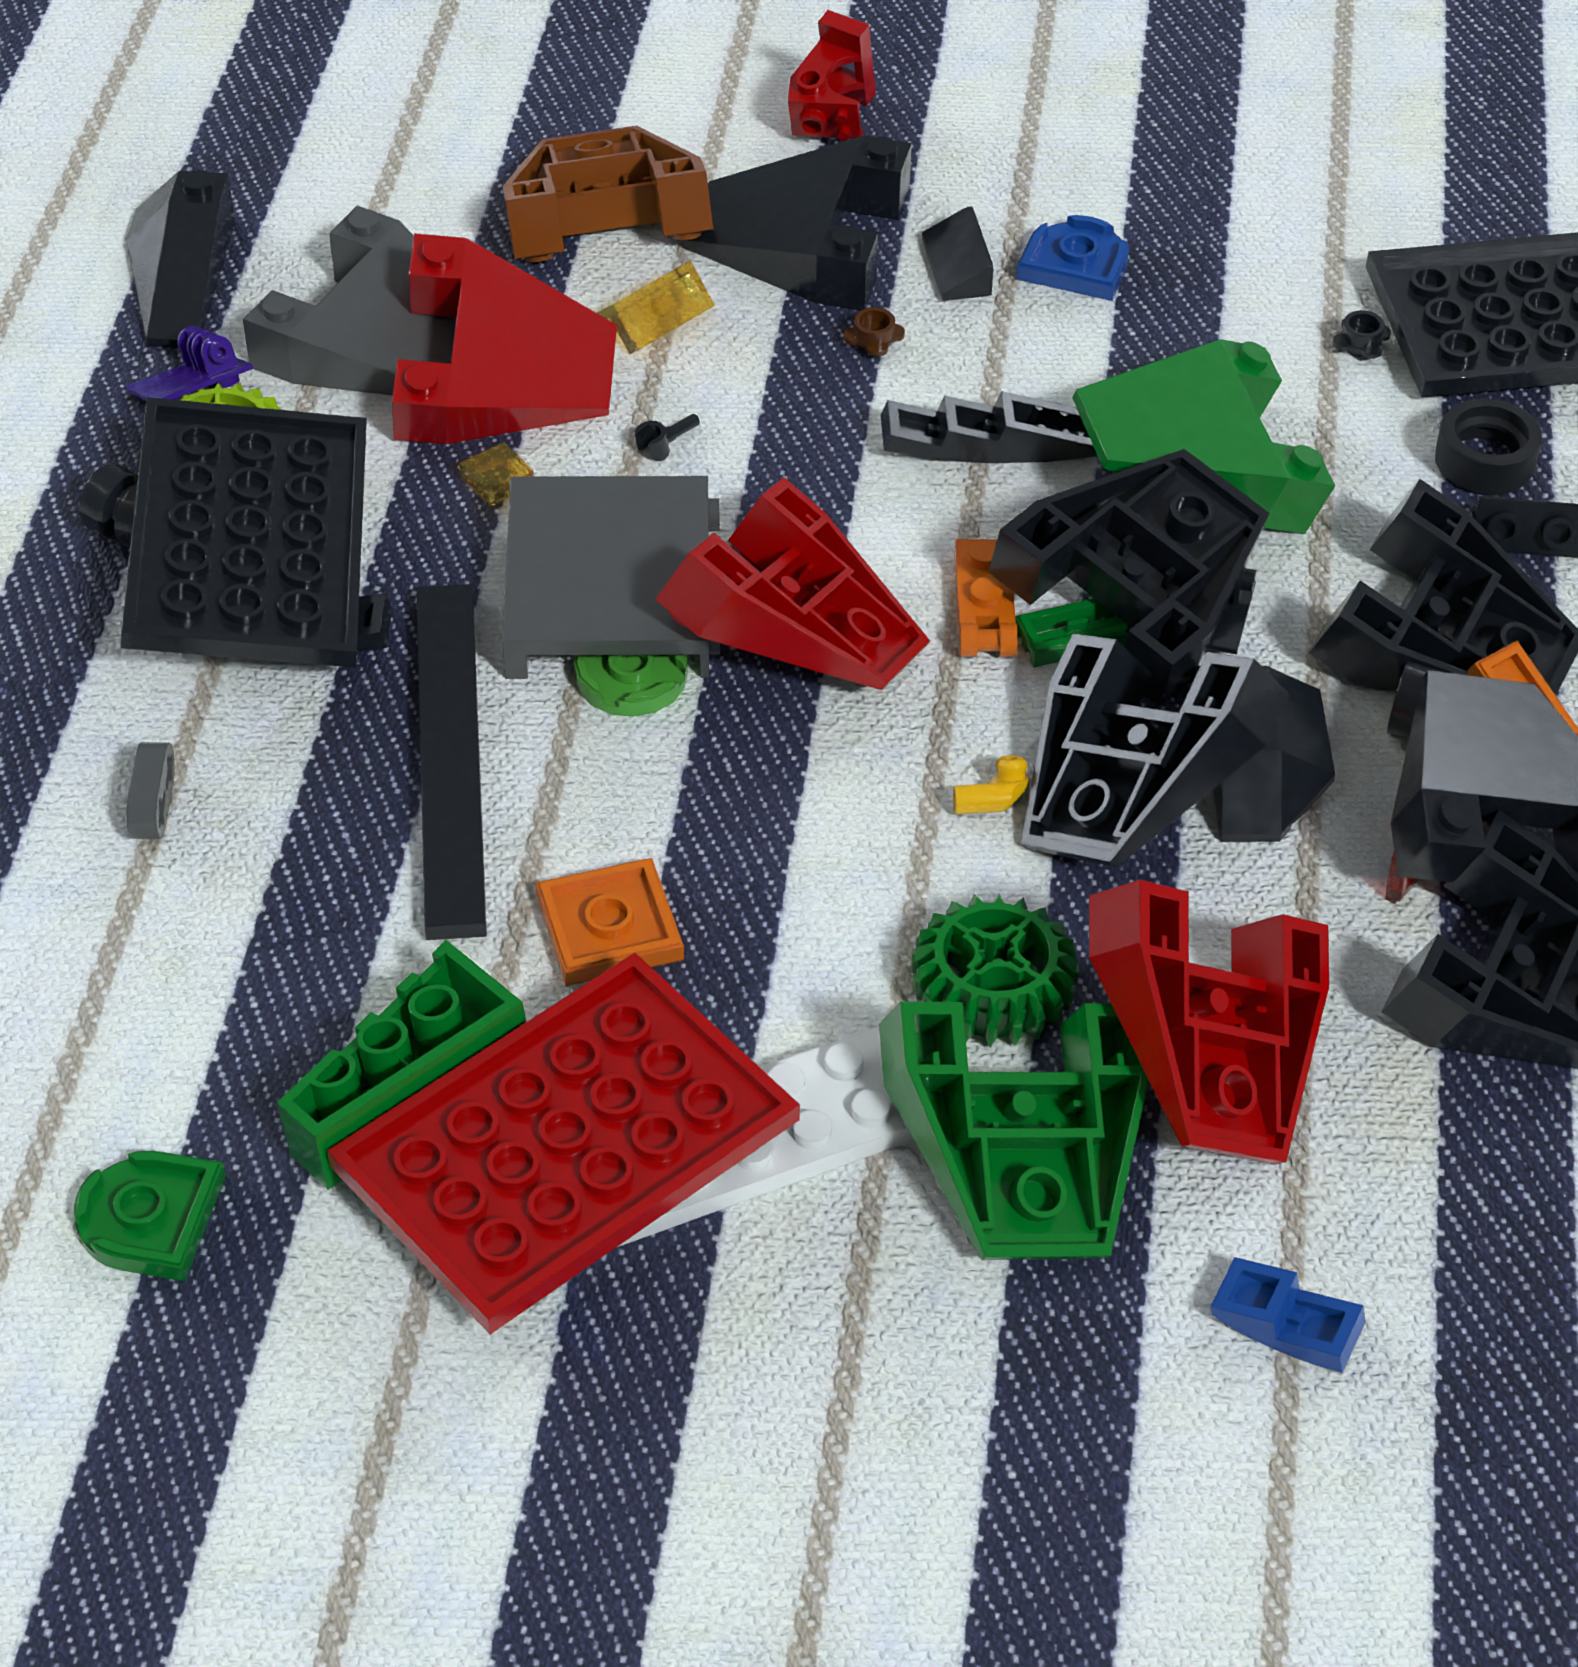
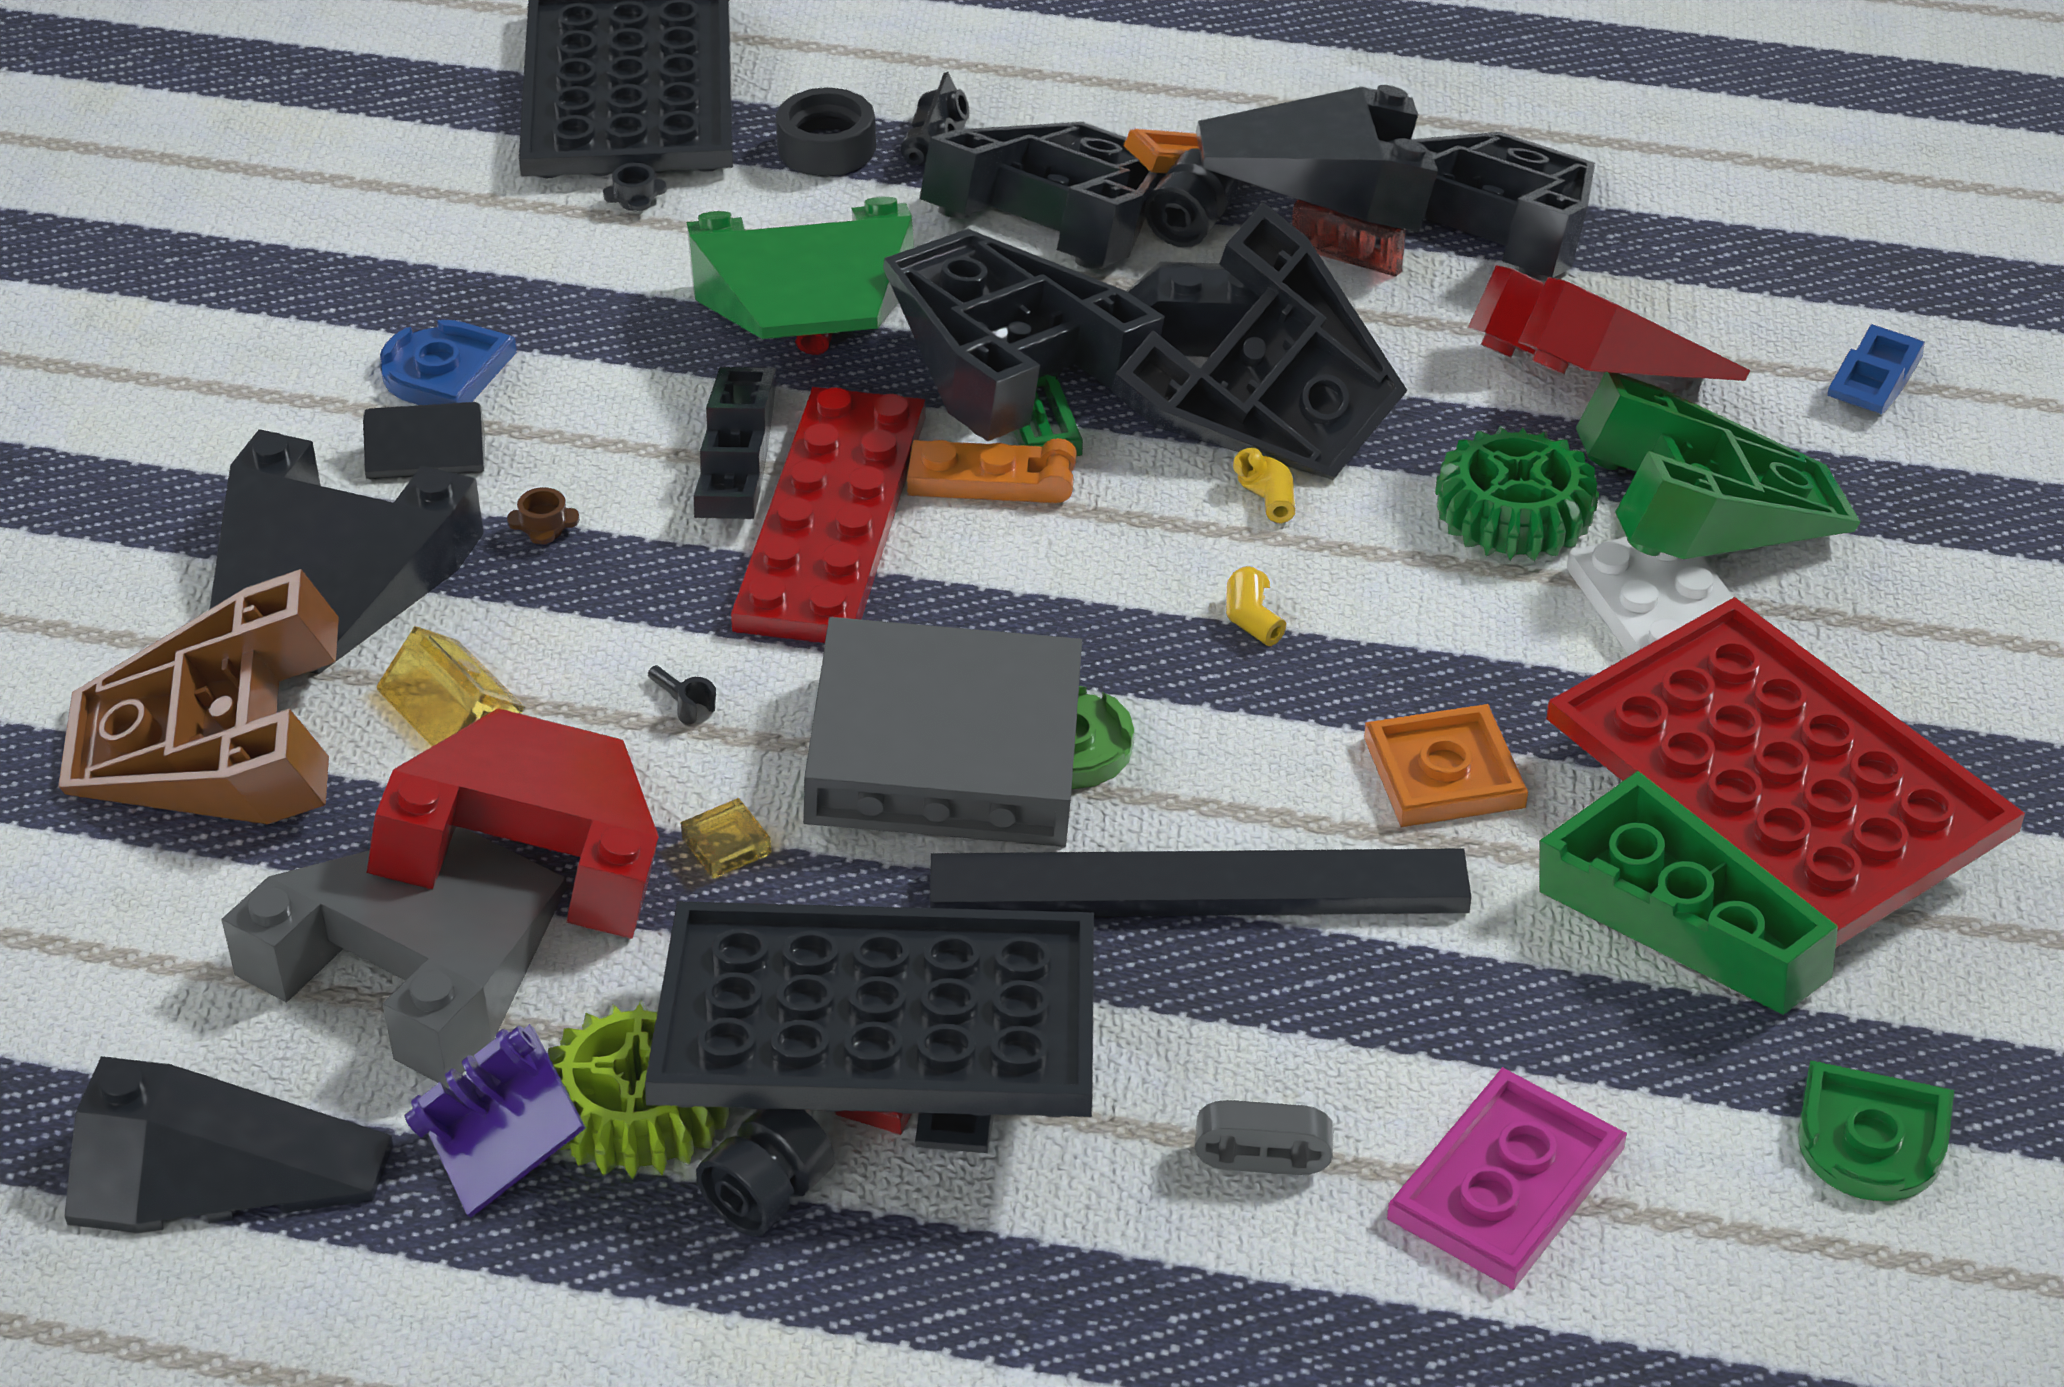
camera: 85 degrees left, 5 degrees down
(115, 954) = (1507, 1177): none -> dark pink tile
(806, 776) = (1246, 606): none -> yellow arm
(808, 605) = (1035, 573): red wedge -> none
(825, 95) = (69, 500): red tile -> none
(908, 498) = (829, 514): none -> red plate

